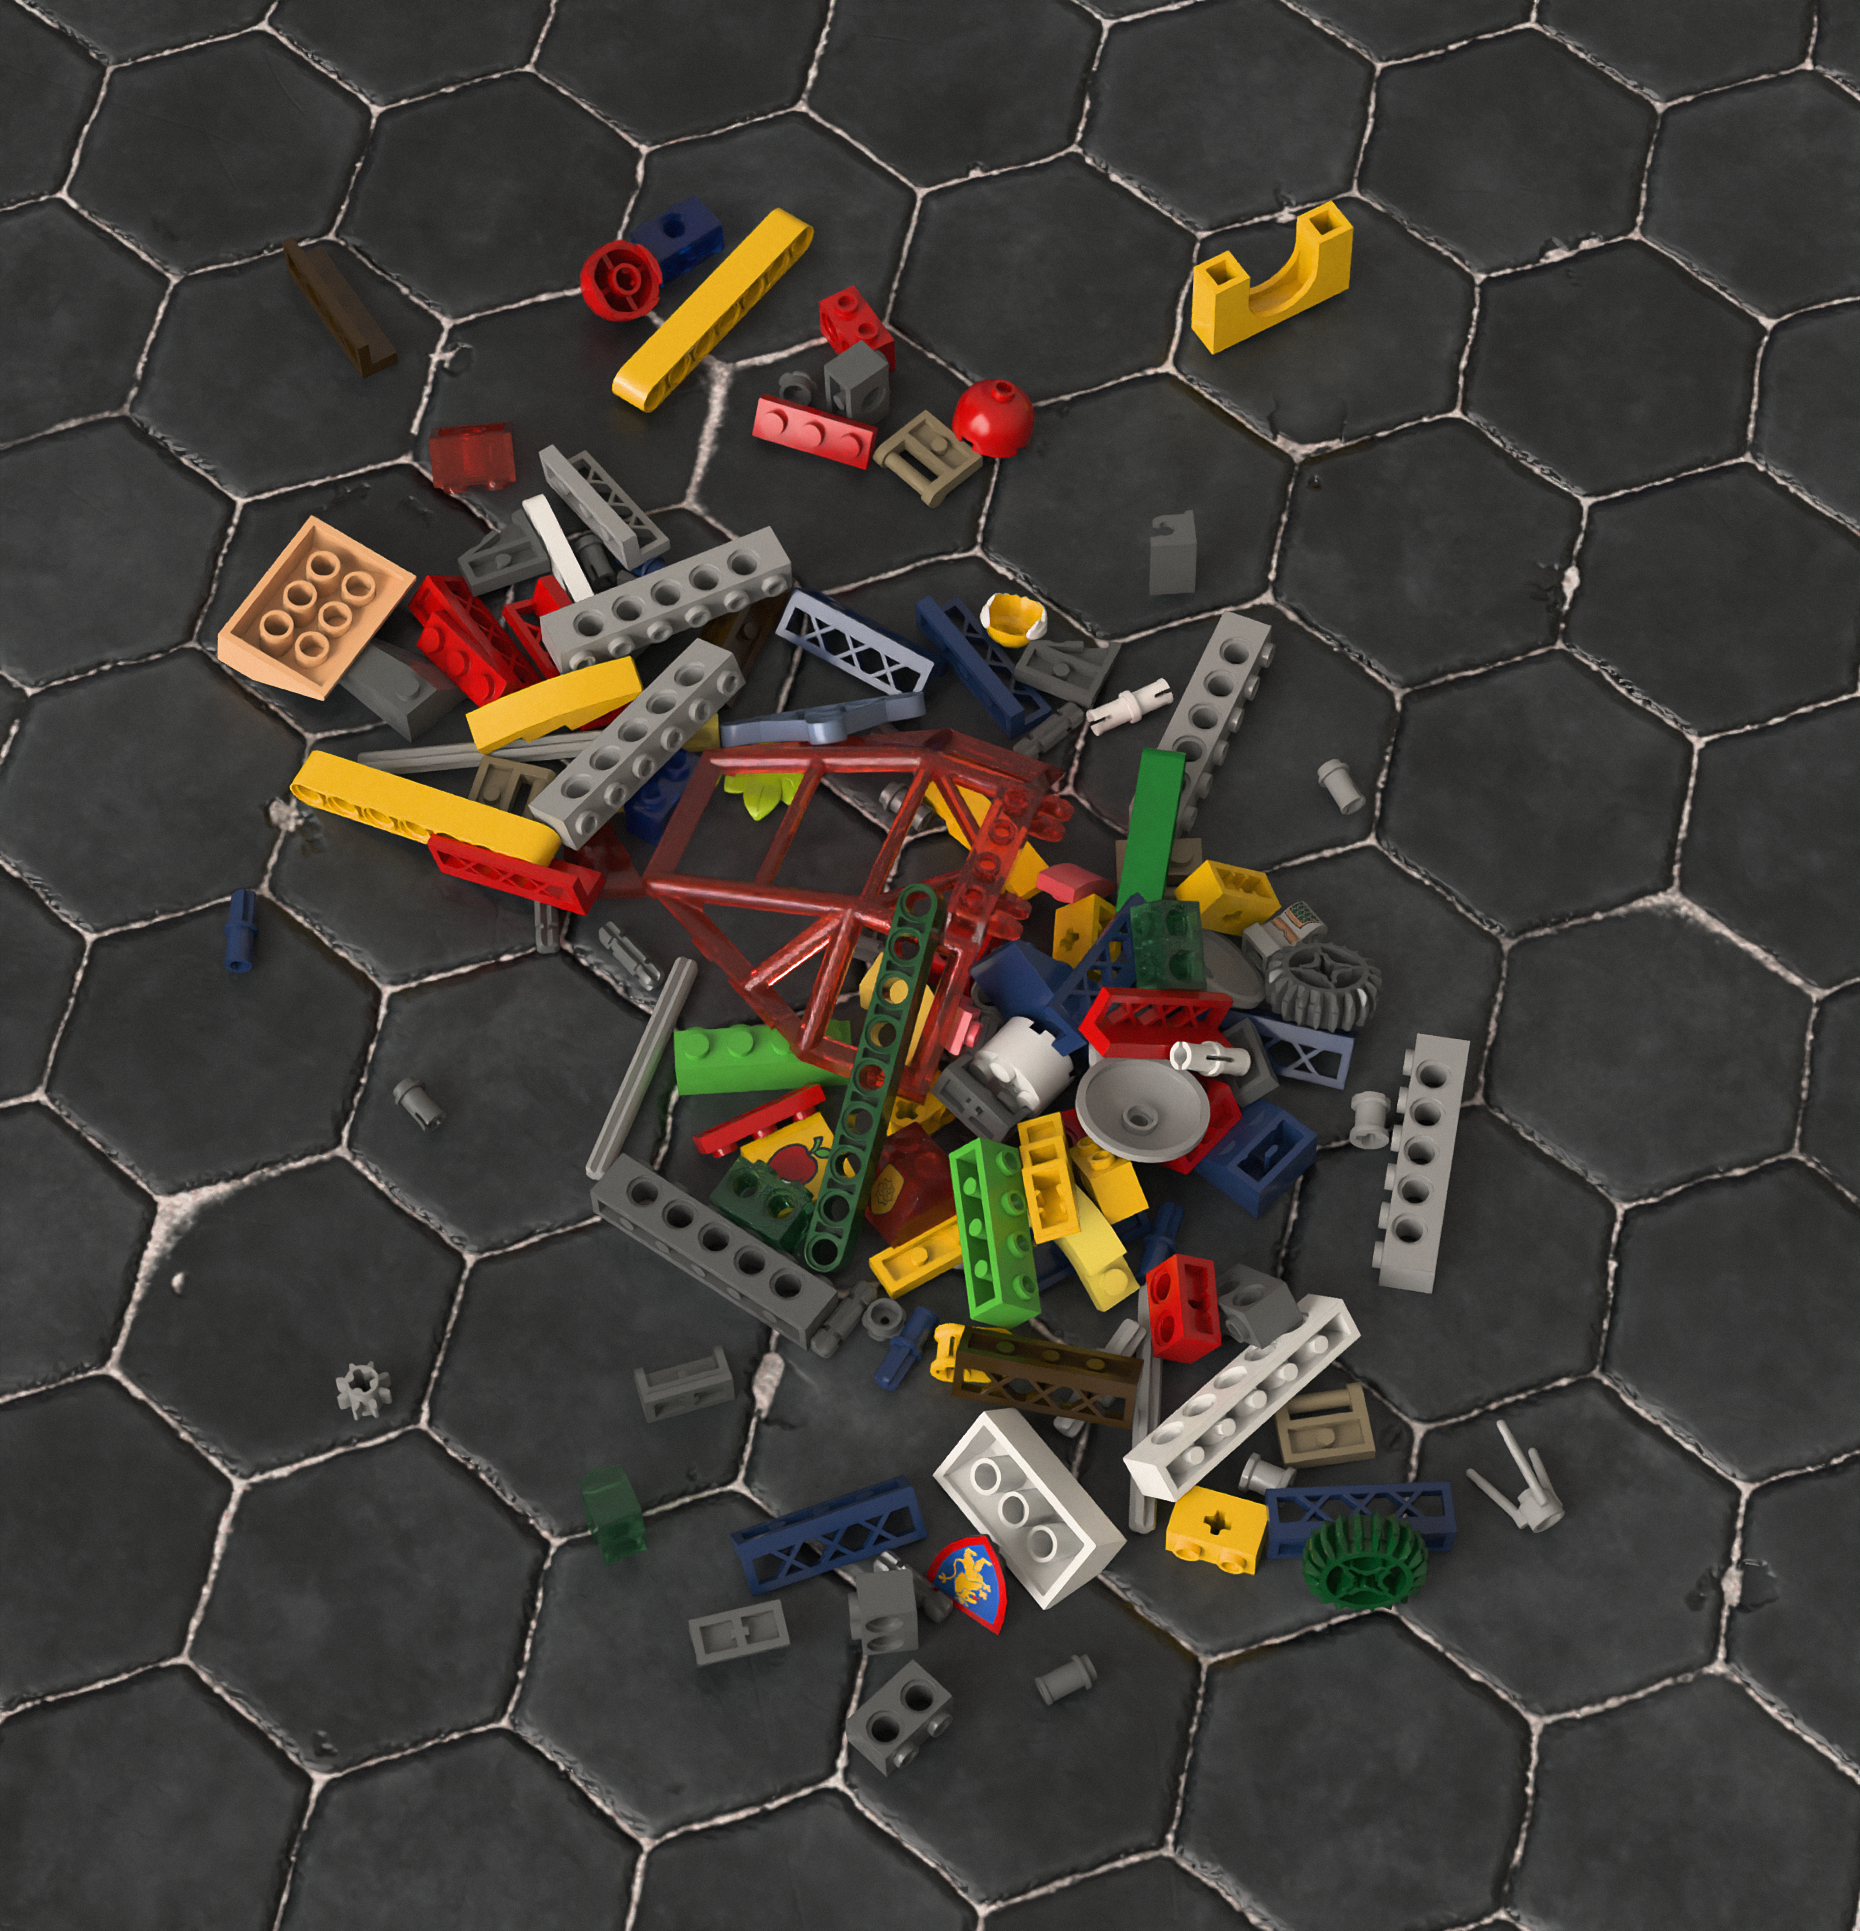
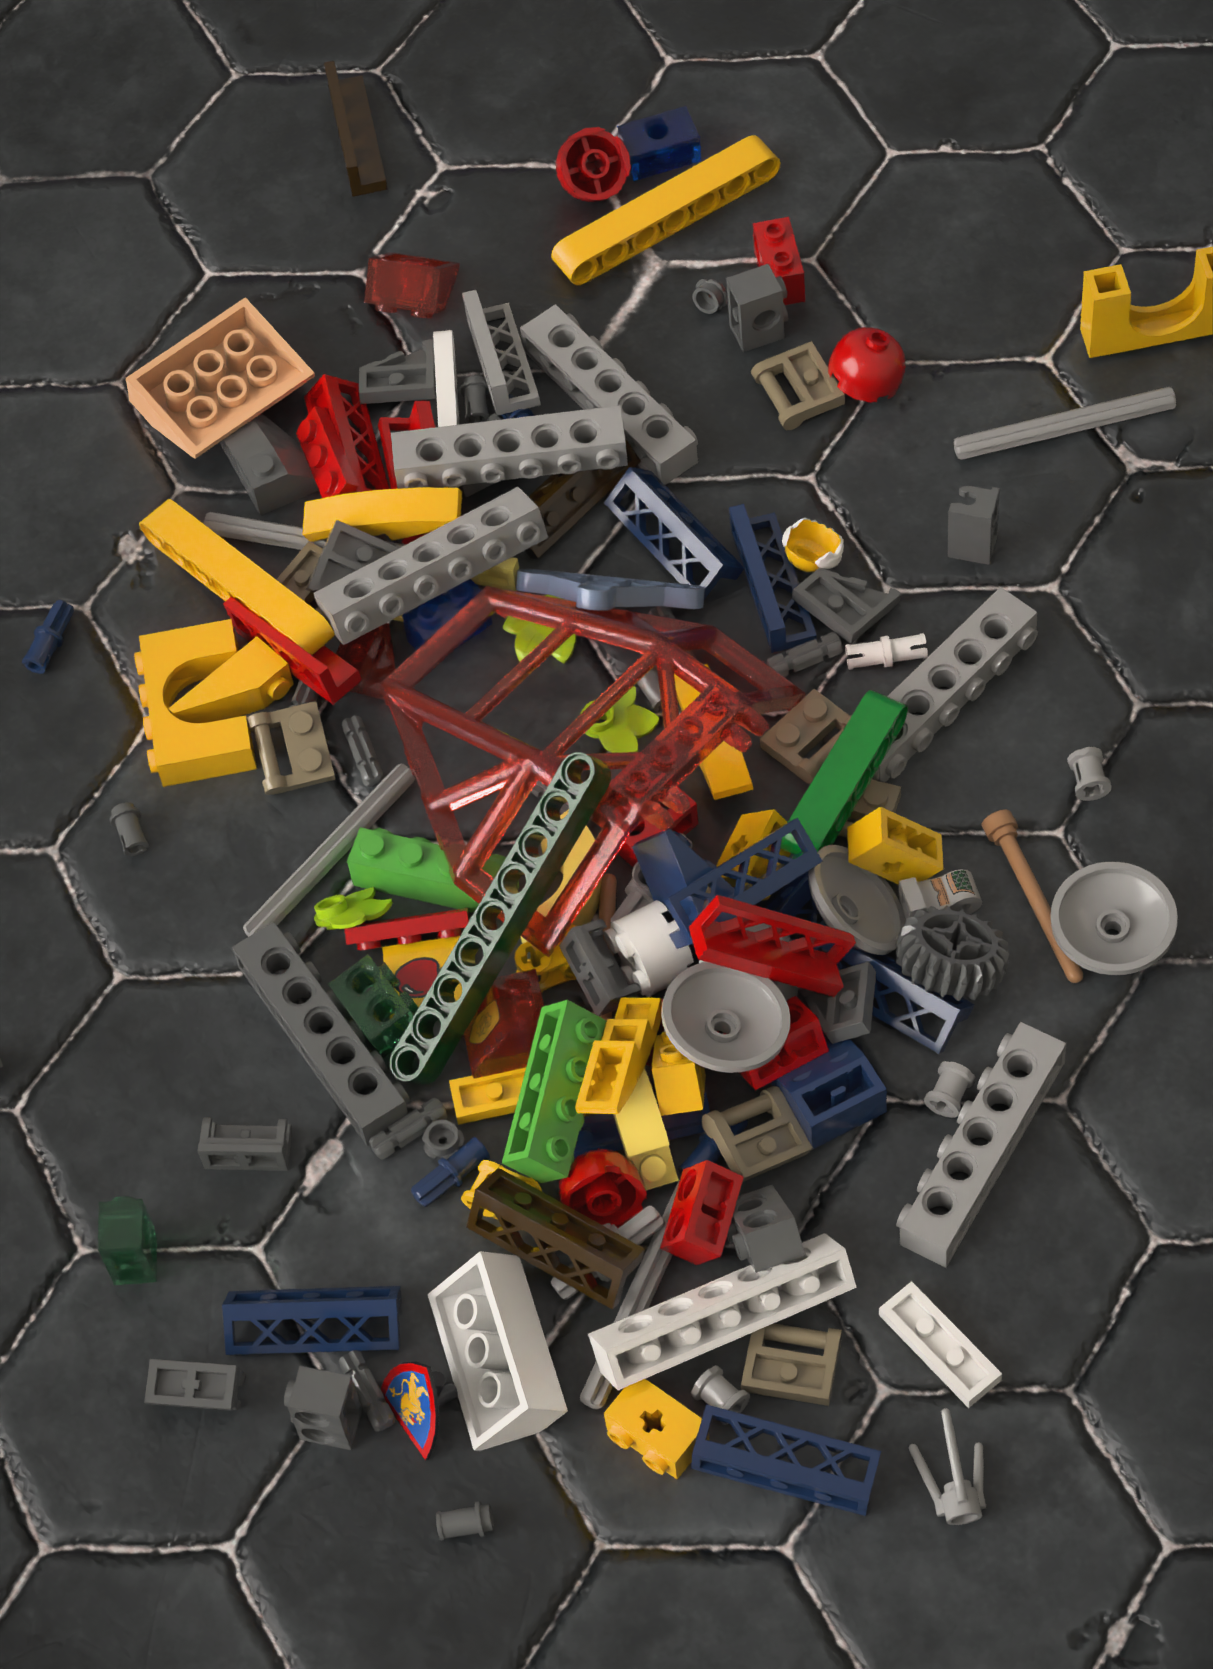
camera: 25 degrees right, 0 degrees up
(437, 1006) = (185, 749): none -> yellow arch
(472, 928) = (238, 687): none -> yellow slope
(538, 758) = (345, 553): none -> dark grey wing
(569, 965) = (304, 745): none -> dark tan plate
(692, 1119) = (350, 911): none -> lime plate
(708, 505) = (599, 381): none -> light grey brick
(815, 431) = (708, 336): plate -> none
(870, 841) = (623, 724): none -> lime plate
(890, 1712) = (297, 1498): dark grey brick -> none
(965, 1028) = (607, 894): coral slope -> none
(1071, 883) = (763, 793): coral slope -> none
(1074, 1313) = (603, 1187): none -> red cylinder
(1087, 794) = (801, 731): none -> dark tan plate
(1168, 945) = (813, 879): clear green brick -> none
(1213, 1227) = (762, 1146): none -> dark tan plate
(1214, 428) = (1064, 423): none -> light grey axle
(1226, 1060) = (791, 982): white pin -> none
(1318, 853) = (1002, 830): none -> medium nougat piece
(1340, 785) = (1045, 765): light grey pin -> none
(1365, 1561) = (768, 1502): dark green gear -> none
(1382, 773) = (1089, 774): none -> light grey bush
(1459, 1366) = (940, 1344): none -> white plate
(1468, 888) = (1118, 899): none -> light grey dish

